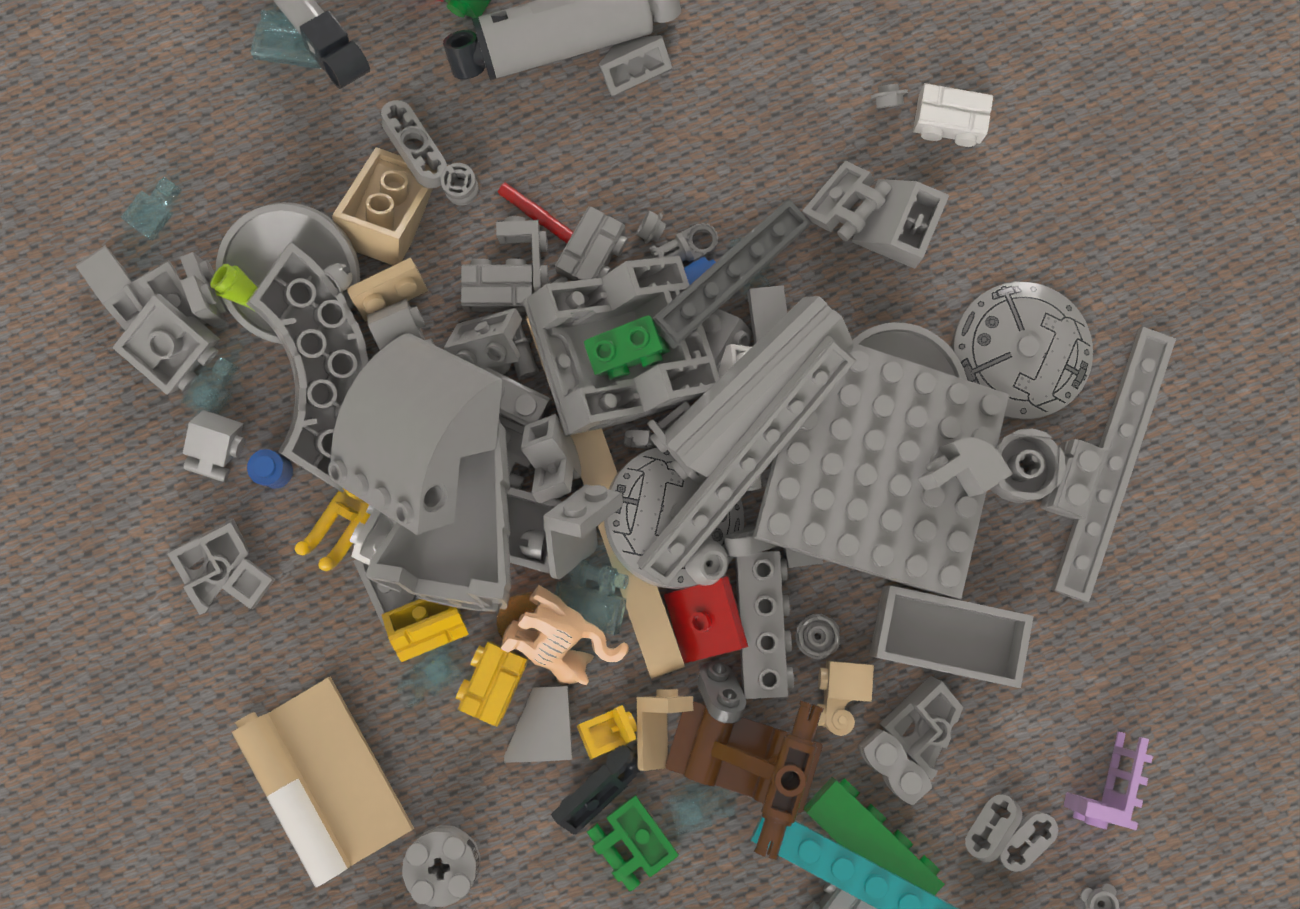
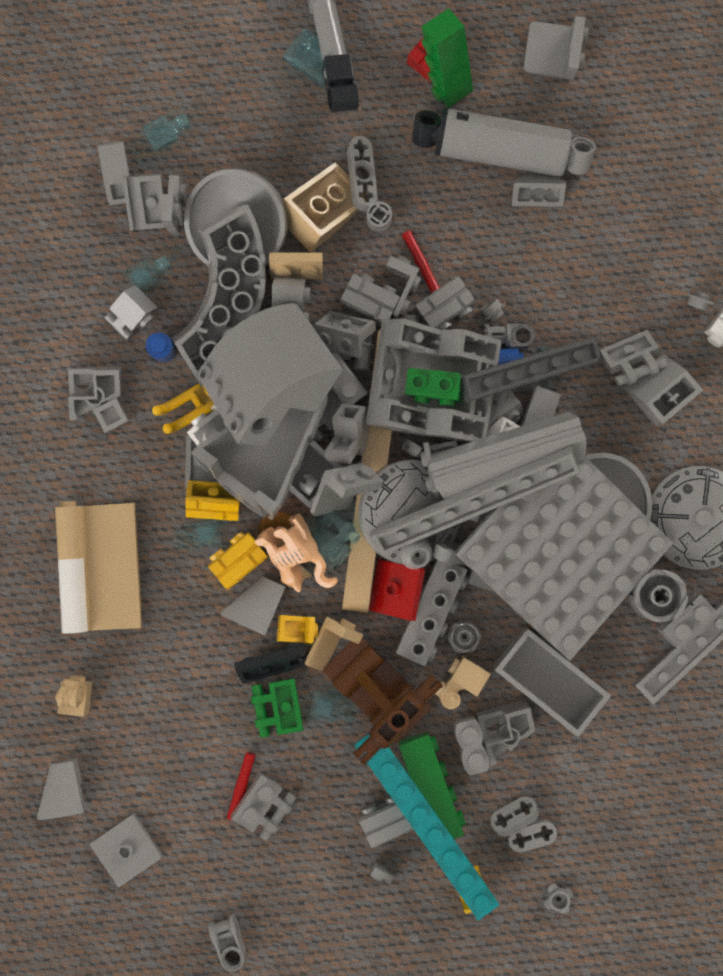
camera: 25 degrees right, 5 degrees up
(167, 345) = (133, 230): light grey plate -> none
(232, 284) = (195, 212): lime cone -> none
(338, 276) = (268, 242): light grey hinge -> none
(428, 883) = (134, 665): light grey brick -> none
(721, 692) = (383, 641): dark grey plate -> none
(972, 461) = (624, 577): light grey brick -> none
(1115, 806) = (601, 842): lavender plate -> none

